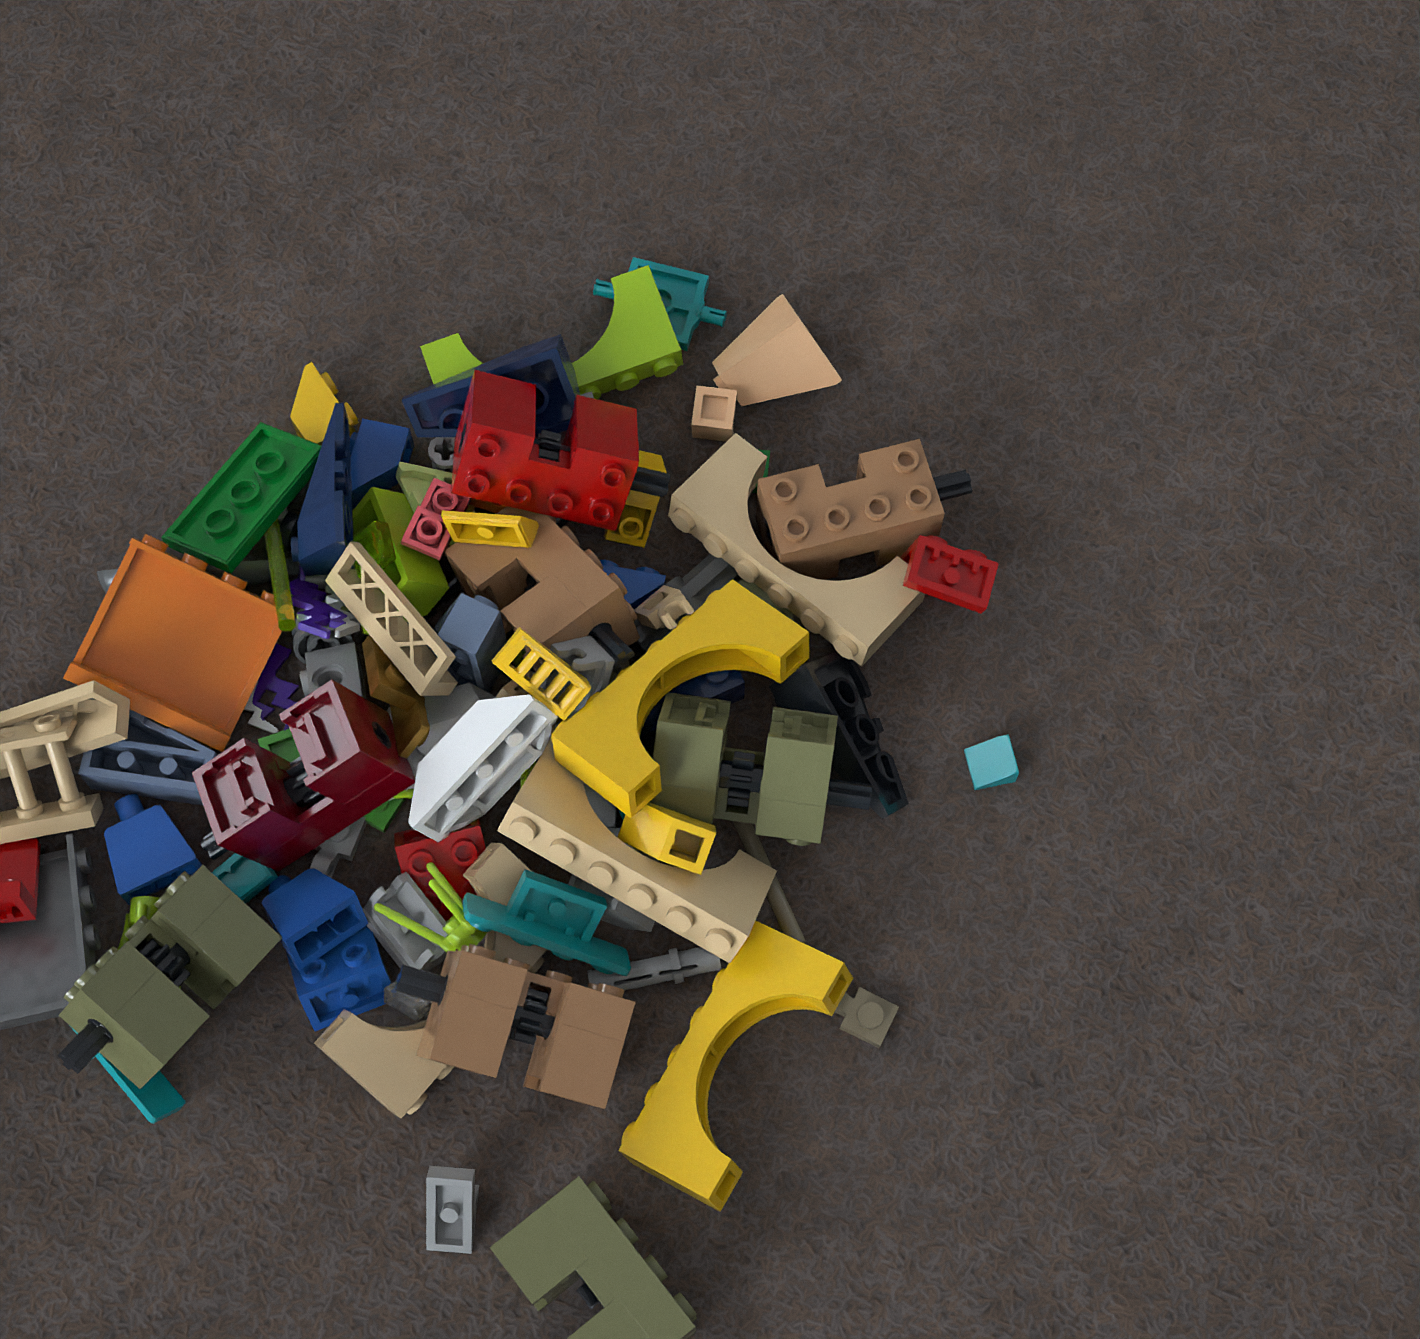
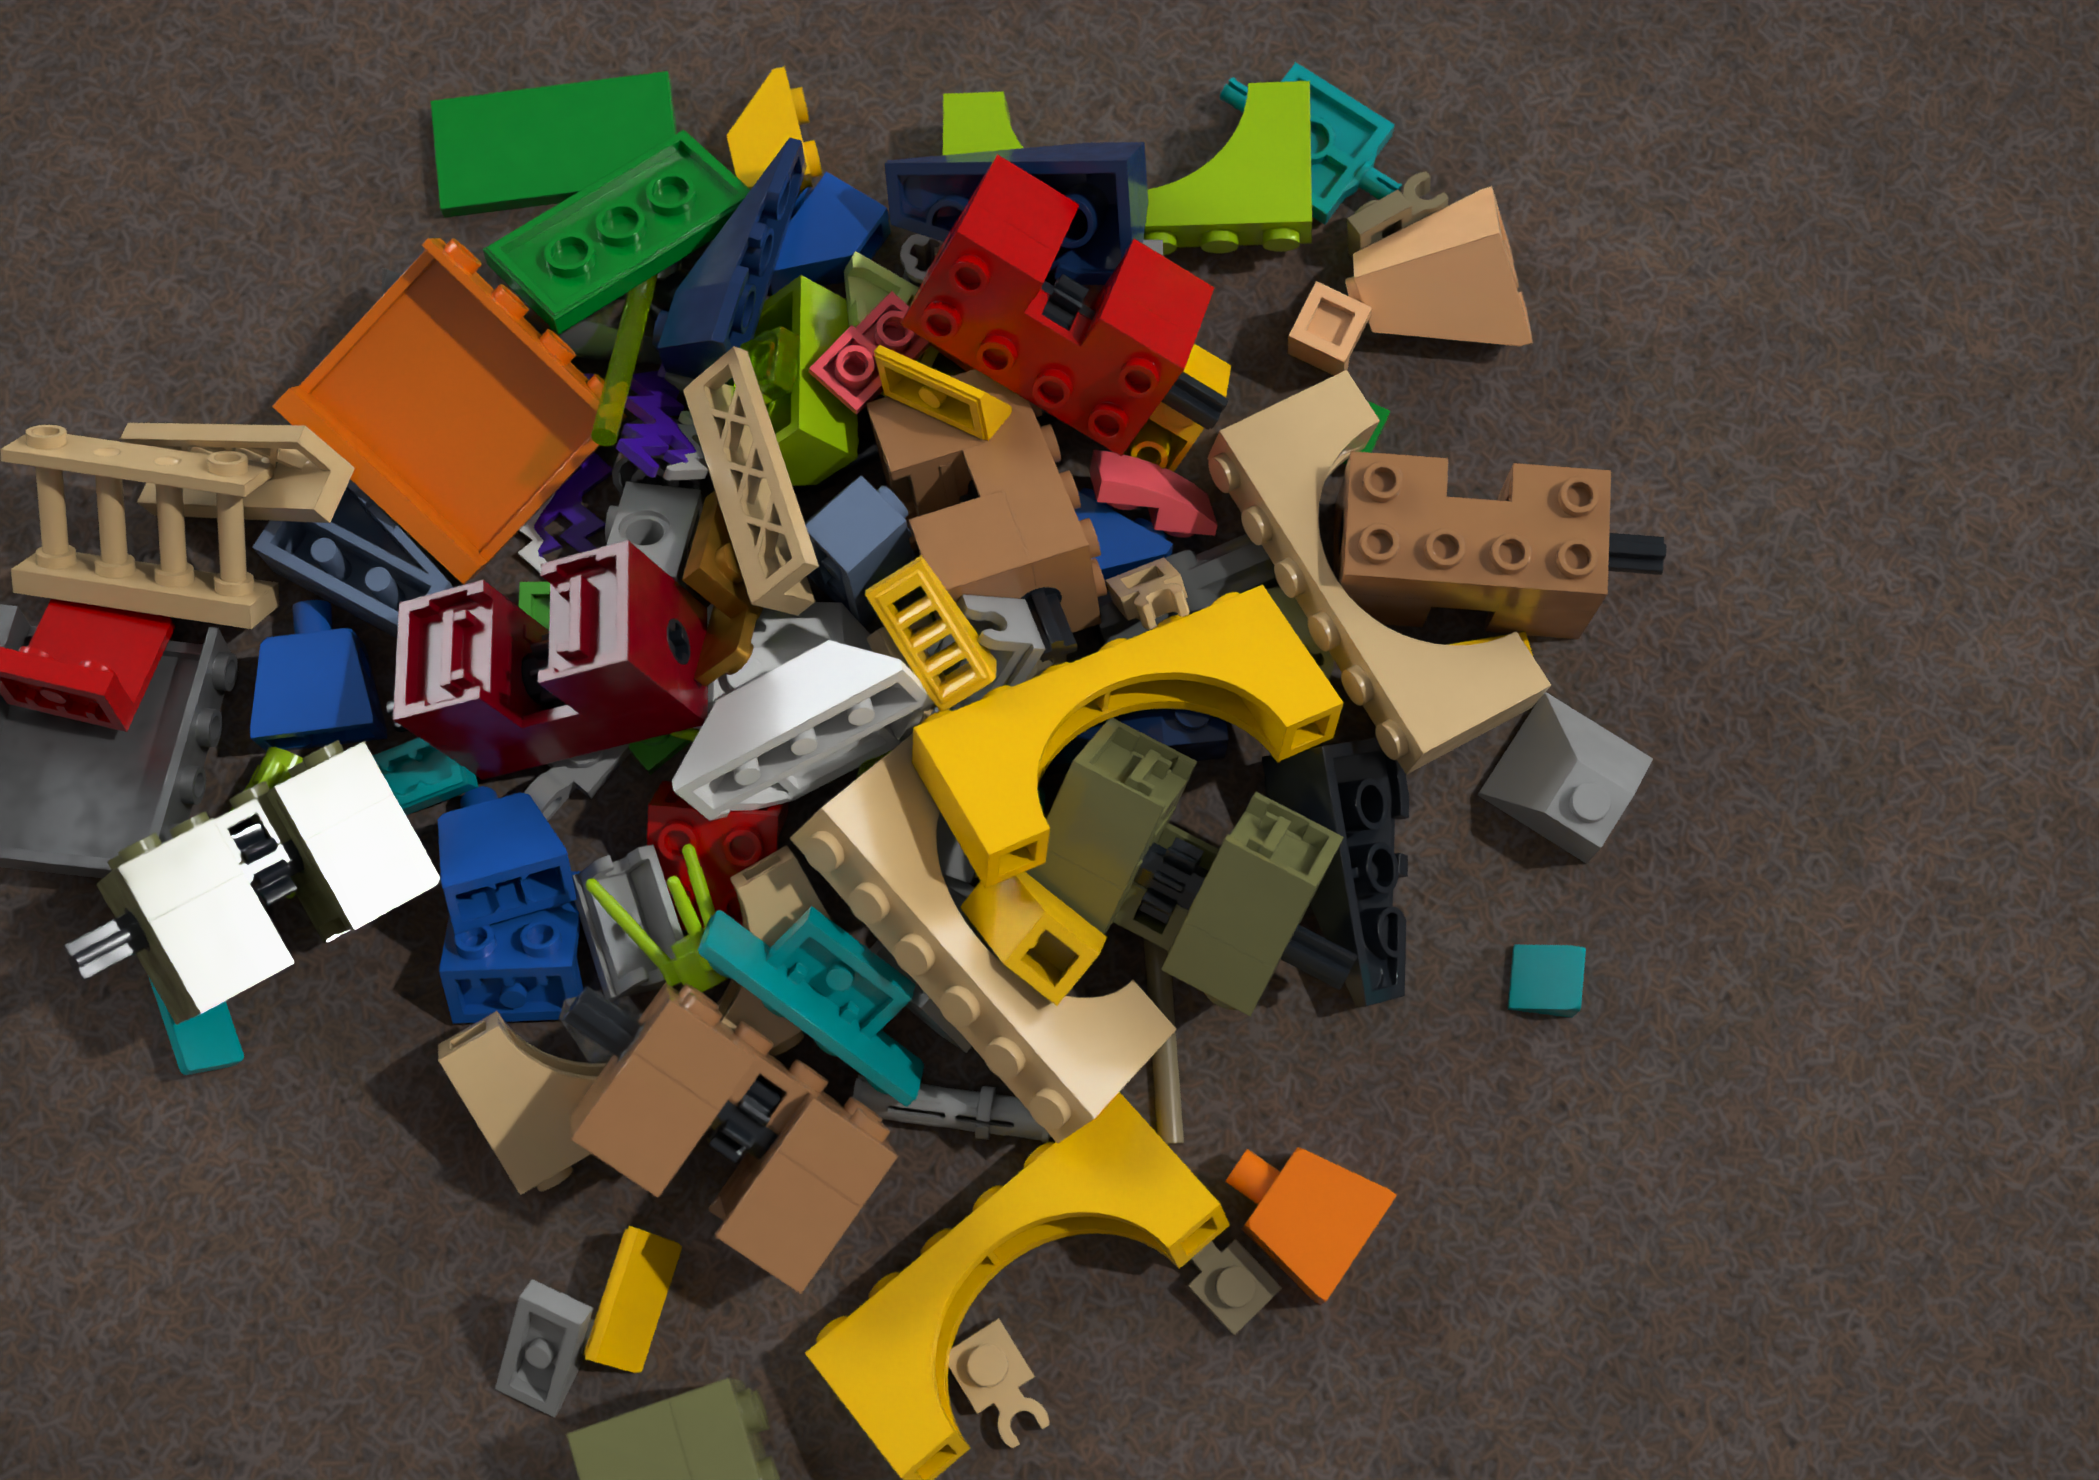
camera: 20 degrees right, 5 degrees up
(170, 459) = (544, 140): none -> green tile
(496, 1161) = (633, 1300): none -> yellow slope
(652, 549) = (1172, 500): none -> coral slope
(727, 330) = (1392, 213): none -> dark tan plate
(739, 1124) = (991, 1373): none -> tan plate
(900, 956) = (1309, 1216): none -> orange torso
(949, 573) = (1584, 684): red bracket -> none
(958, 640) = (1566, 778): none -> light grey slope

